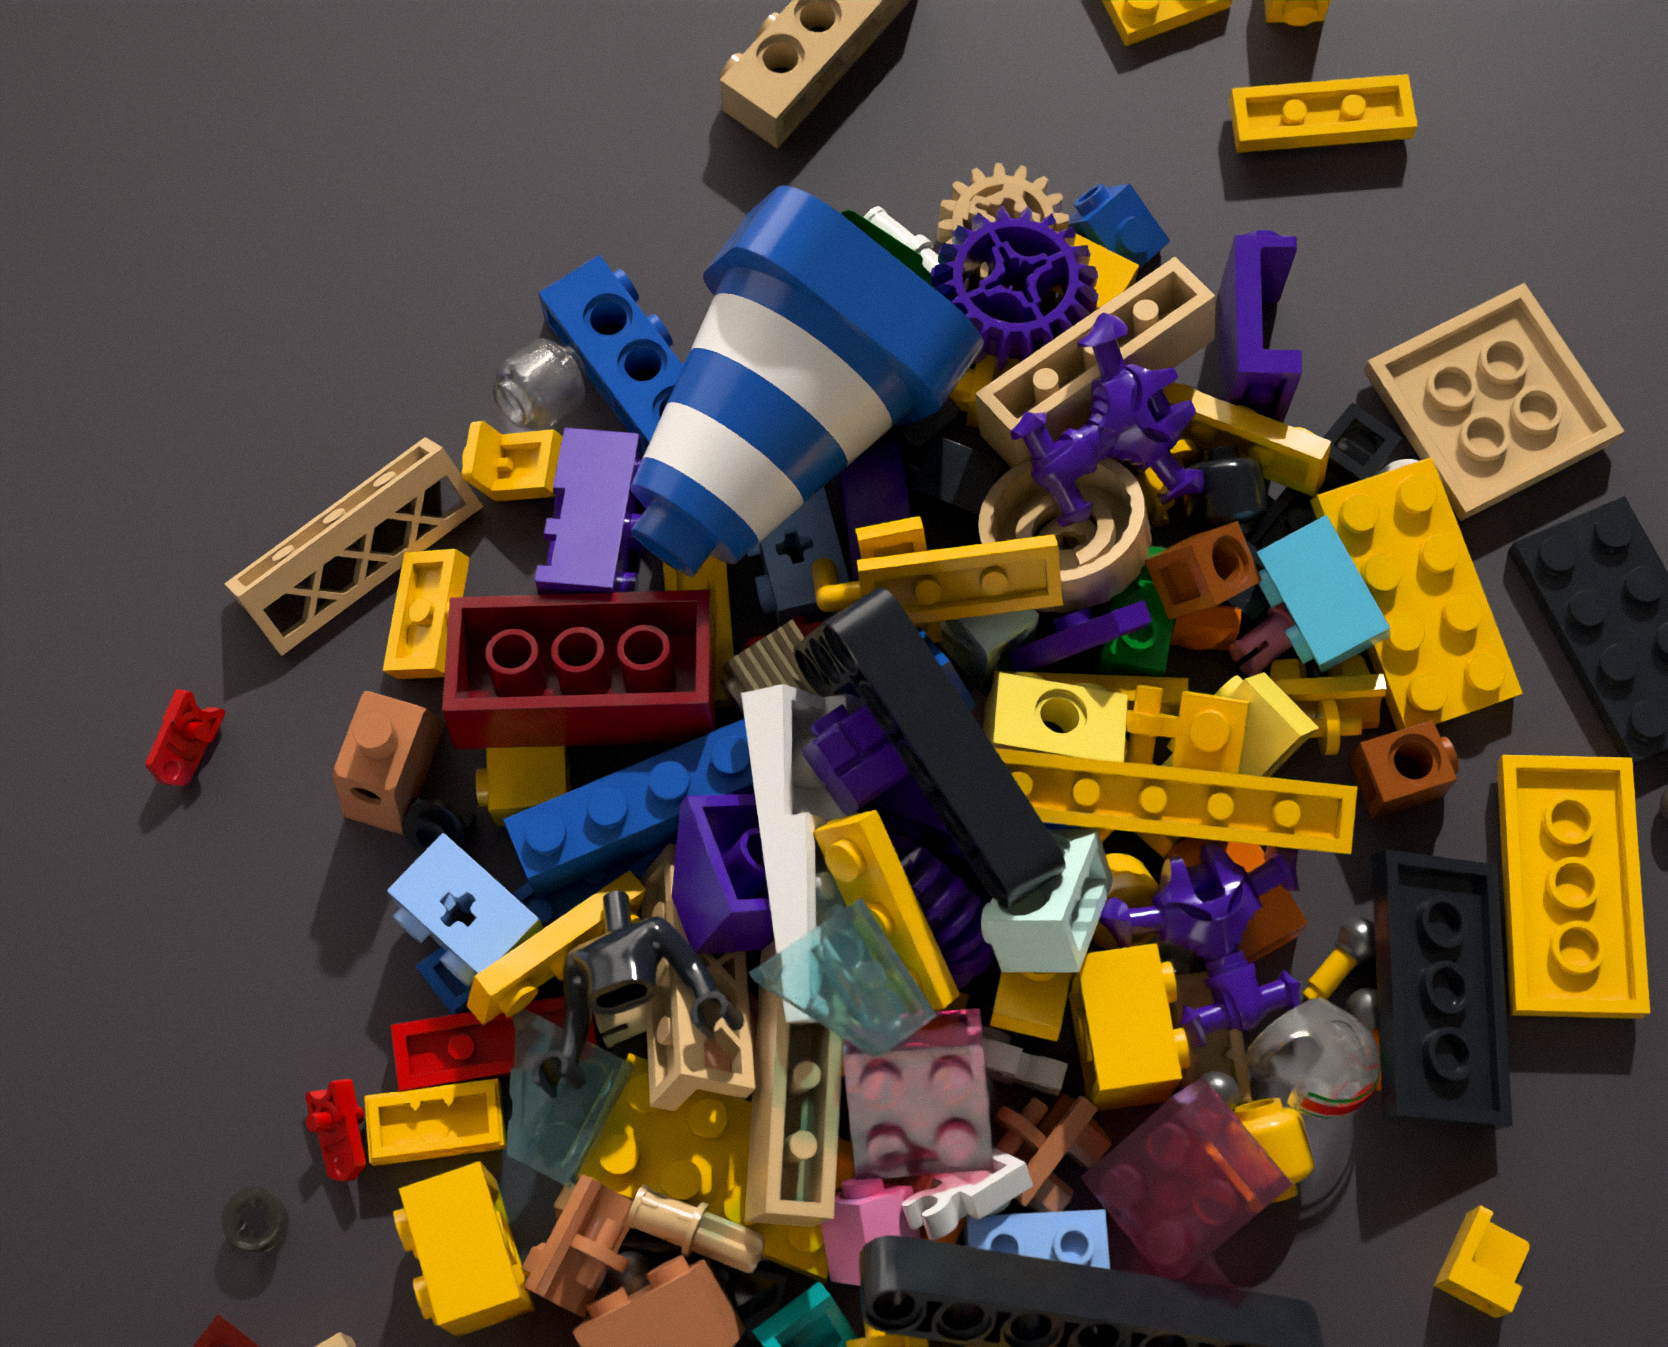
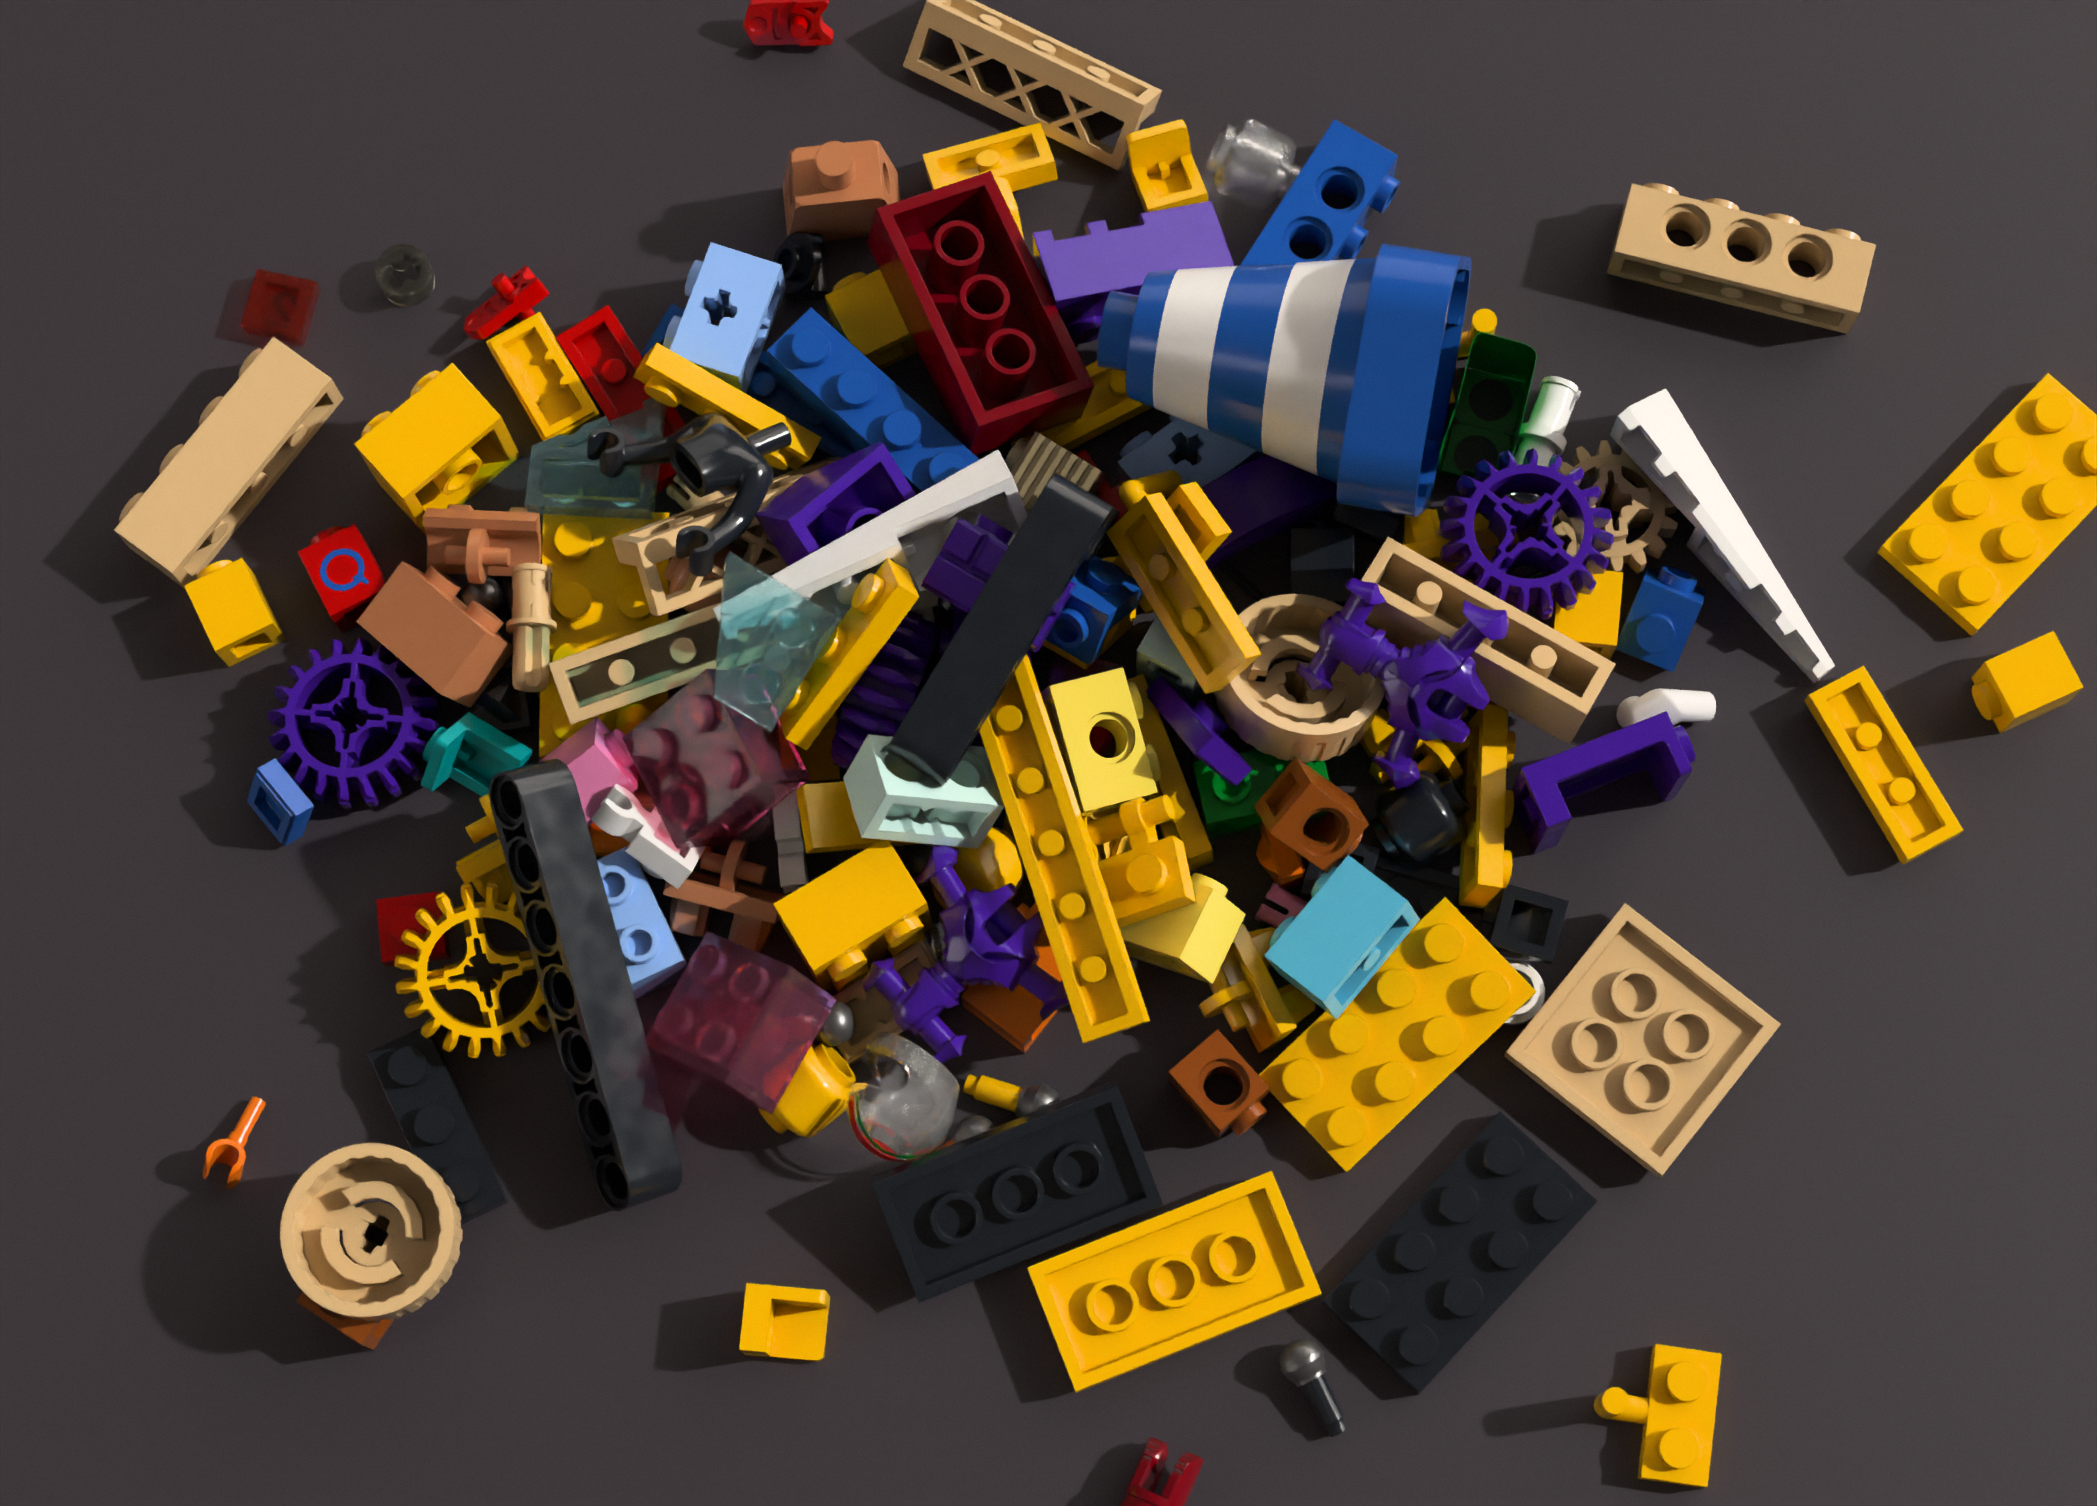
camera: 70 degrees right, 5 degrees up
(1066, 150) = (1672, 457): none -> white wedge
(1204, 253) = (1679, 704): none -> white arm

